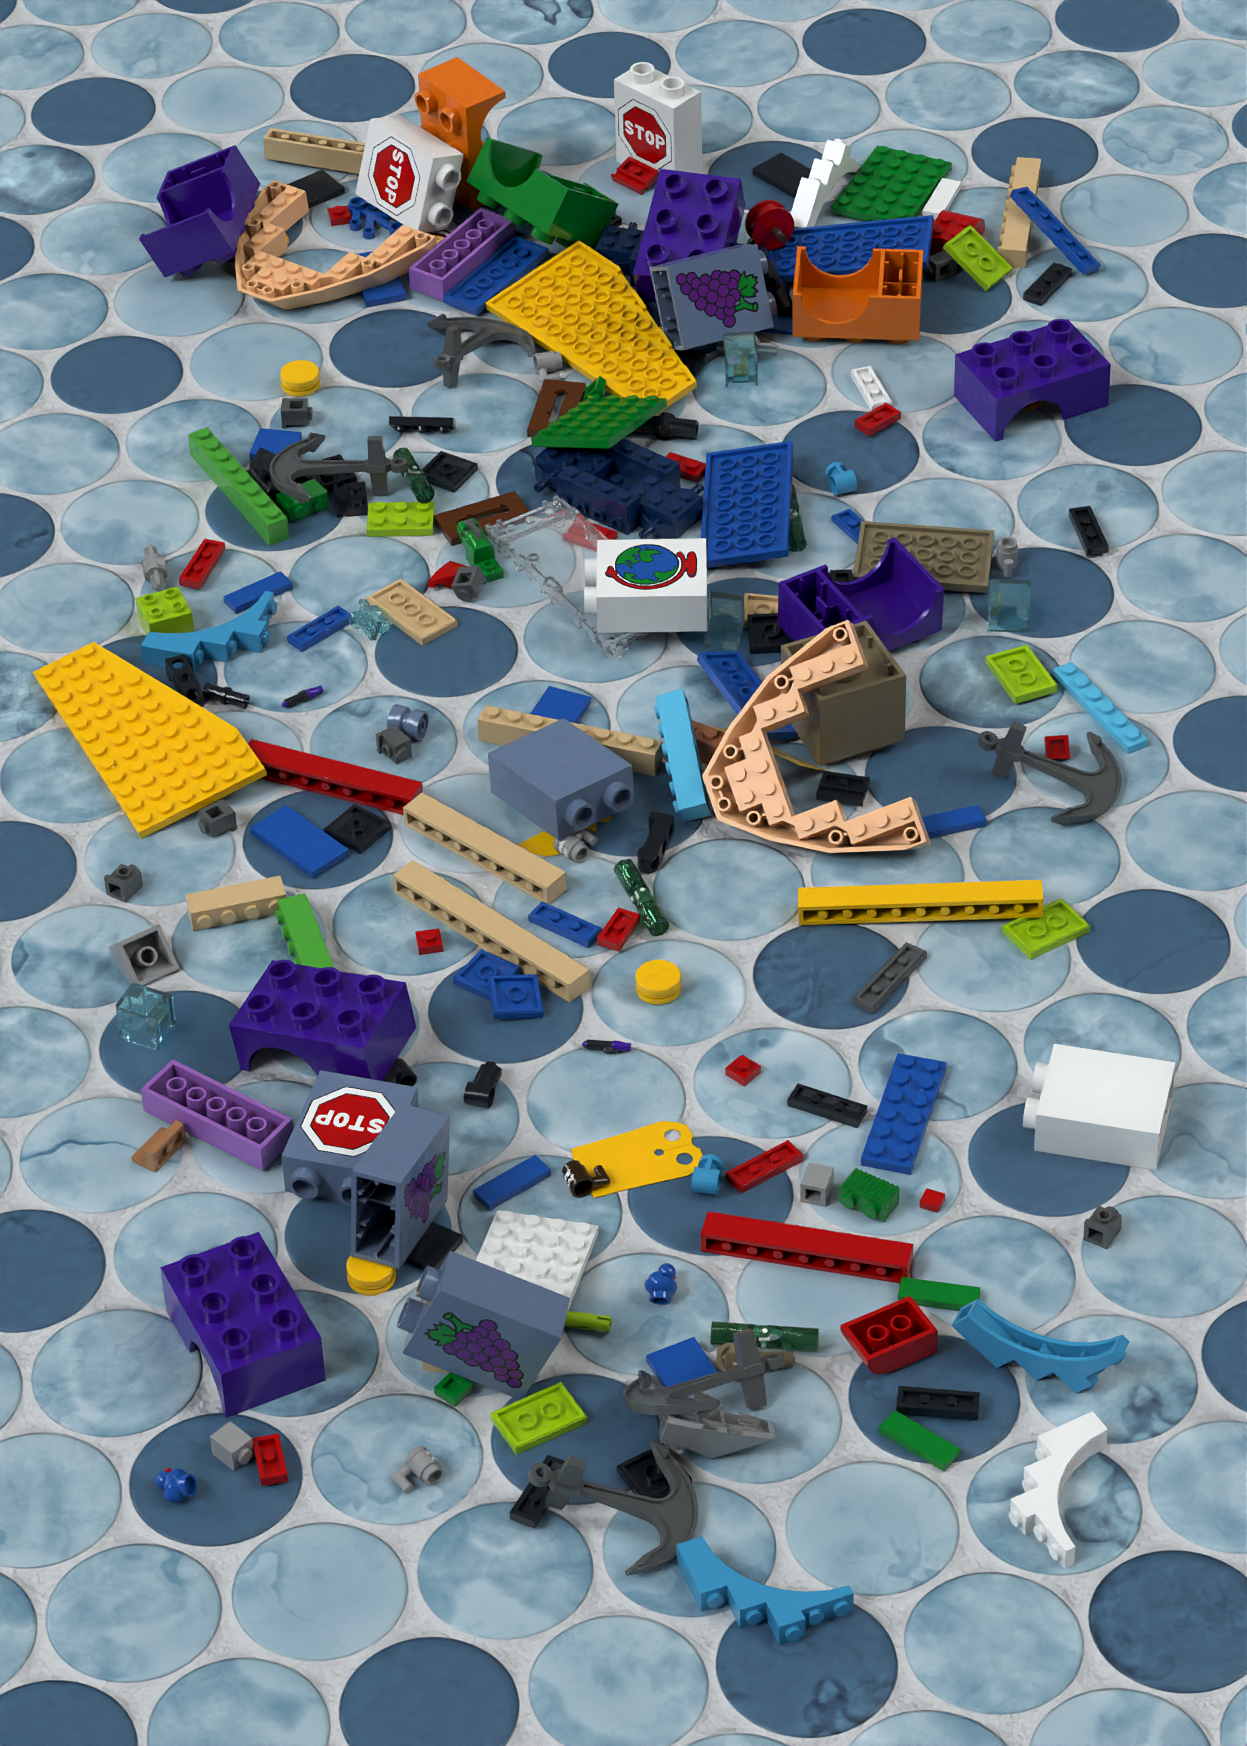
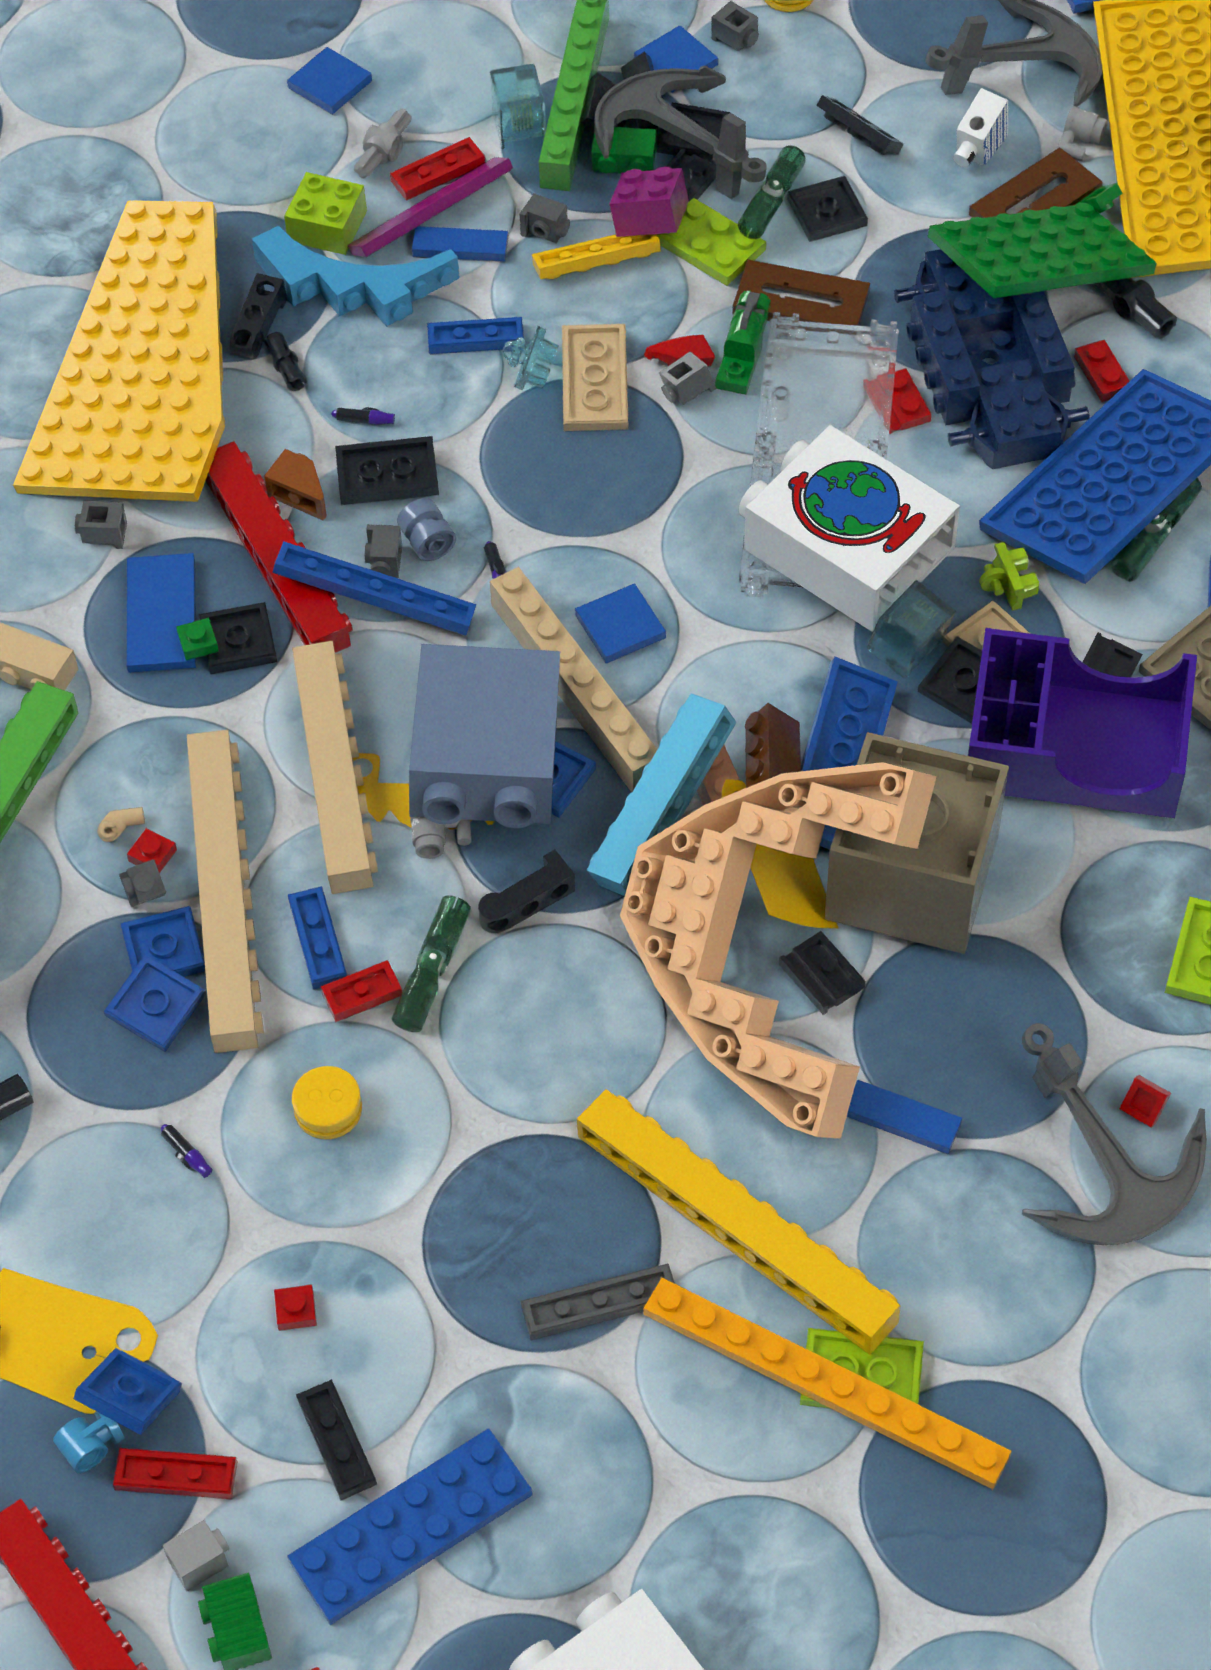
camera: 40 degrees right, 15 degrees up
(80, 557) = (329, 80): none -> blue tile
(218, 507) = (517, 103): none -> clear light blue piece
(220, 583) = (430, 207): none -> magenta tile
(296, 554) = (544, 218): none -> dark grey brick
(311, 740) = (296, 484): none -> dark orange slope
(340, 837) = (197, 639): none -> green plate
(344, 555) = (593, 253): none -> yellow plate
(349, 711) = (386, 470): none -> black plate
(353, 512) = (649, 202): none -> magenta brick
(393, 939) = (117, 821): none -> tan arm
(415, 758) = (374, 588): none -> blue plate
(448, 950) = (142, 883): none -> dark grey brick
(464, 720) = (494, 559): none -> black piece
(496, 398) = (982, 129): none -> white torso
(705, 1143) = (127, 1391): none -> blue tile
(712, 707) = (771, 744): none -> reddish brown brick
(741, 577) = (1004, 578): none -> lime hips
(1035, 937) = (828, 1383): none -> light orange plate

